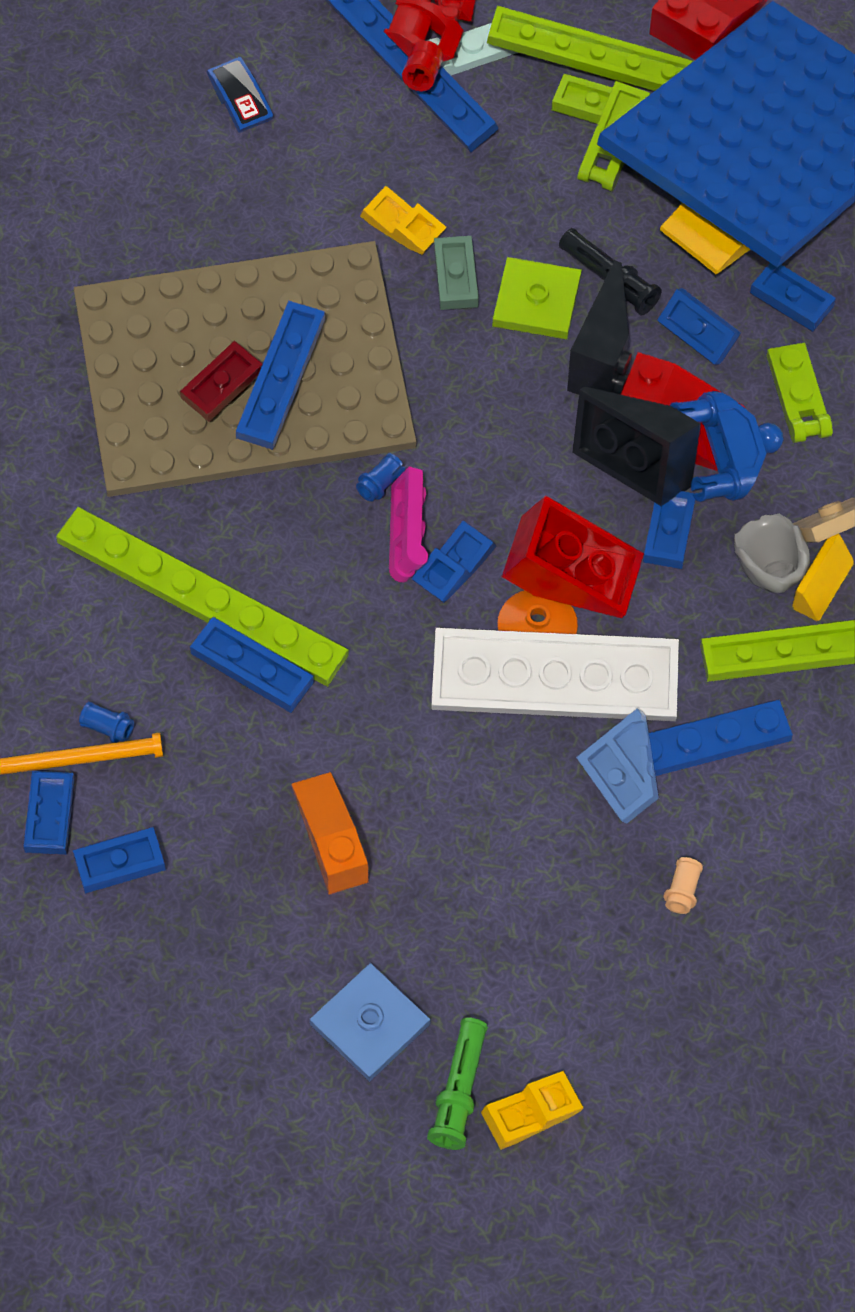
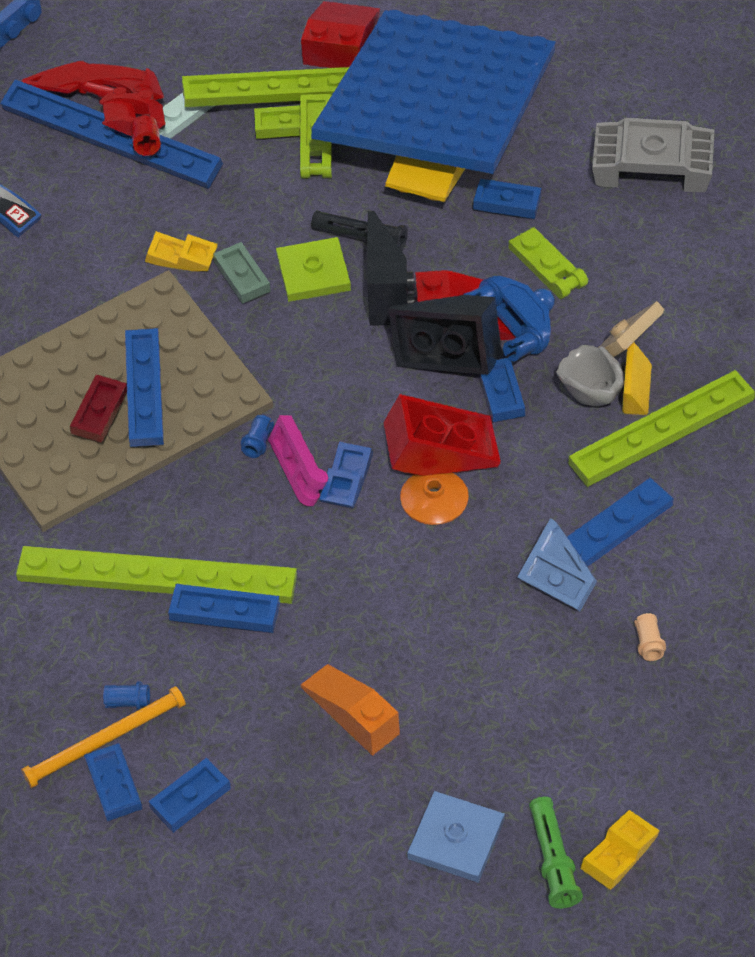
camera: 20 degrees left, 10 degrees down
(554, 674) = (467, 524): white plate -> none
(698, 326) = (448, 243): blue plate -> none

